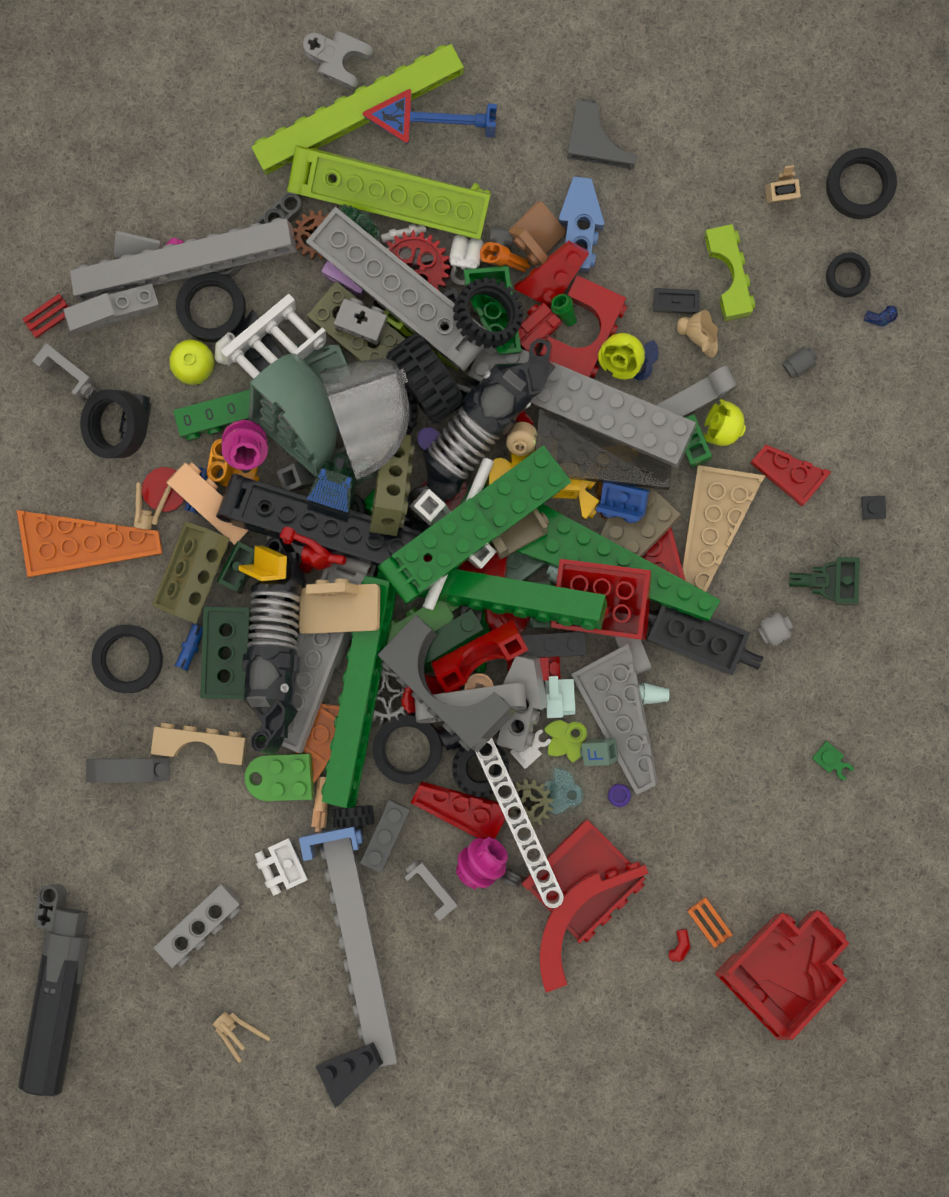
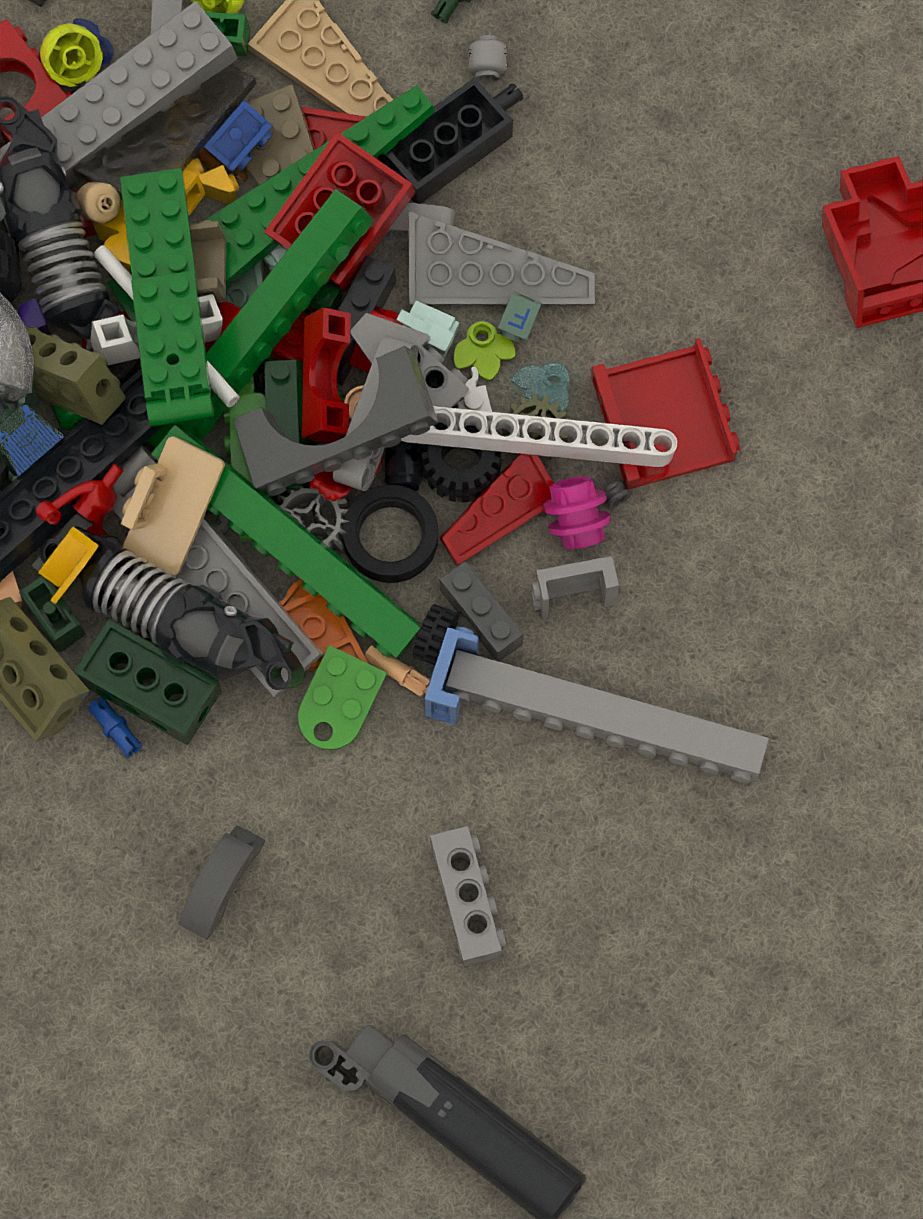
camera: 65 degrees left, 15 degrees down
(100, 652) = (70, 773): black tyre -> none
(224, 1027) = (610, 925): tan plant -> none
(228, 748) = (265, 744): tan arch -> none
(287, 863) = (449, 748): white plate -> none
(347, 1071) = (748, 803): black wing -> none
(559, 918) = (708, 476): red arch -> none
(619, 795) = (584, 326): dark purple tile -> none
(653, 694) = (487, 223): light aqua cone -> none
(683, 947) = (805, 346): red arm -> none
(721, 939) = (818, 299): orange tile -> none
(830, 758) = (673, 80): green plate -> none

